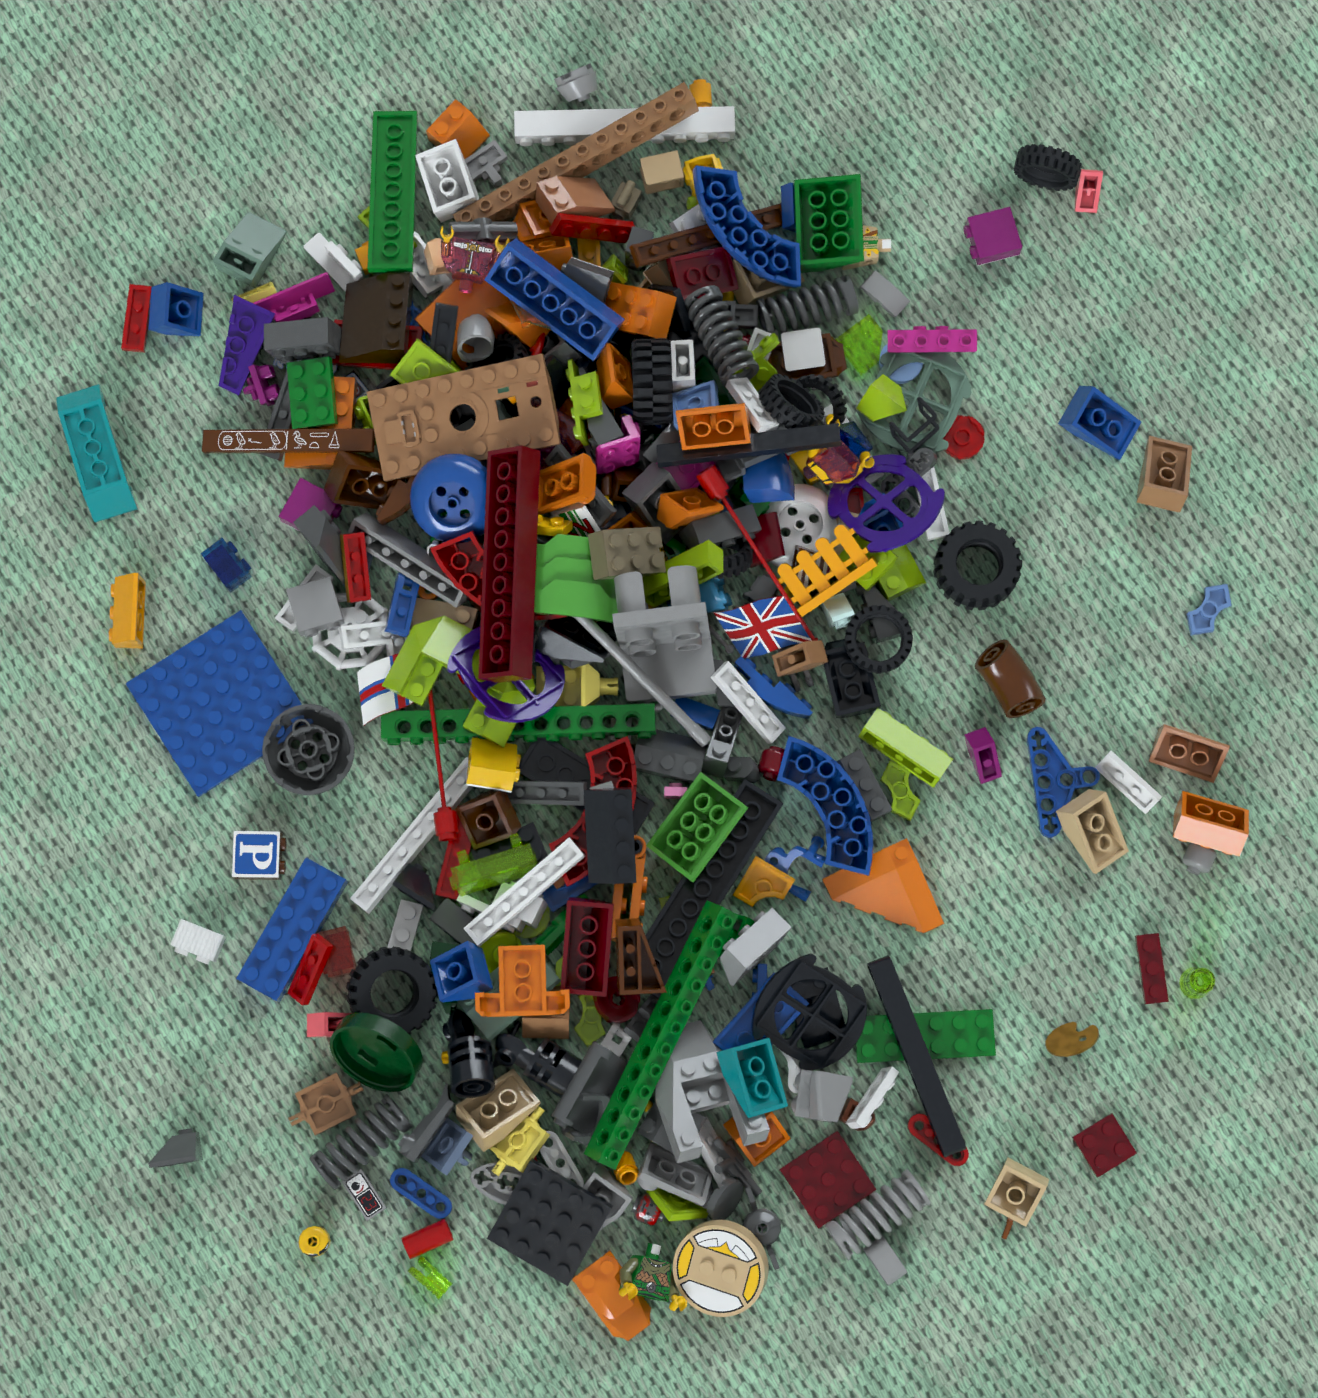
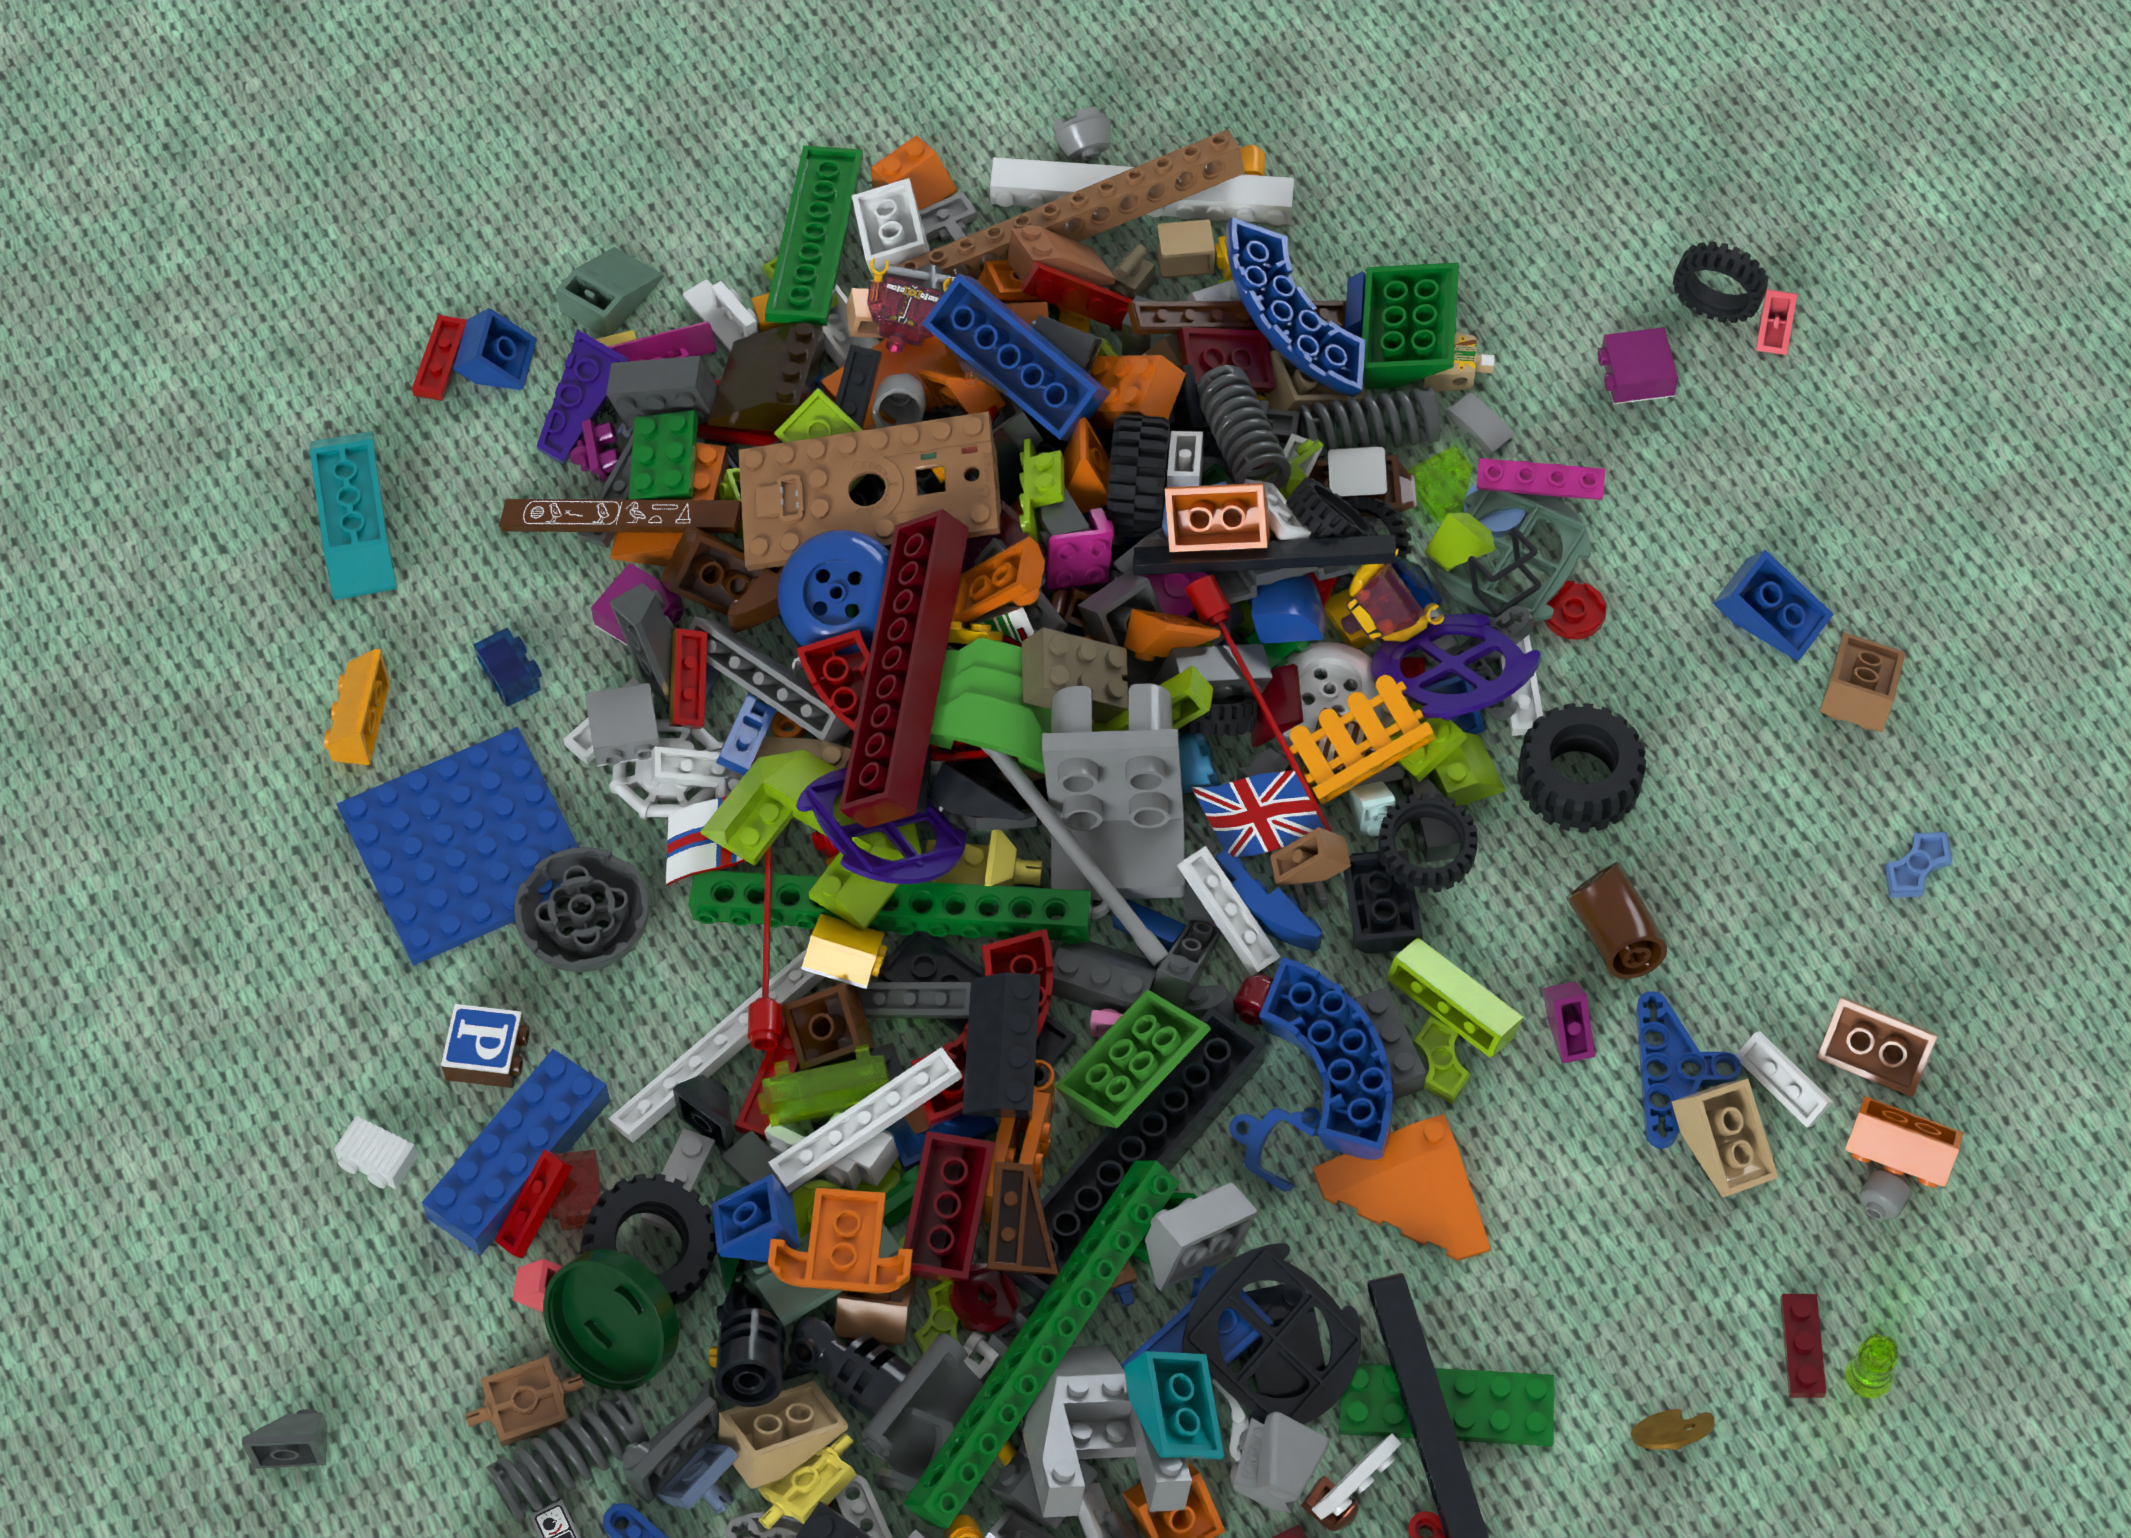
camera: 10 degrees right, 20 degrees down
(762, 881) = (1222, 1157): light orange tile -> none

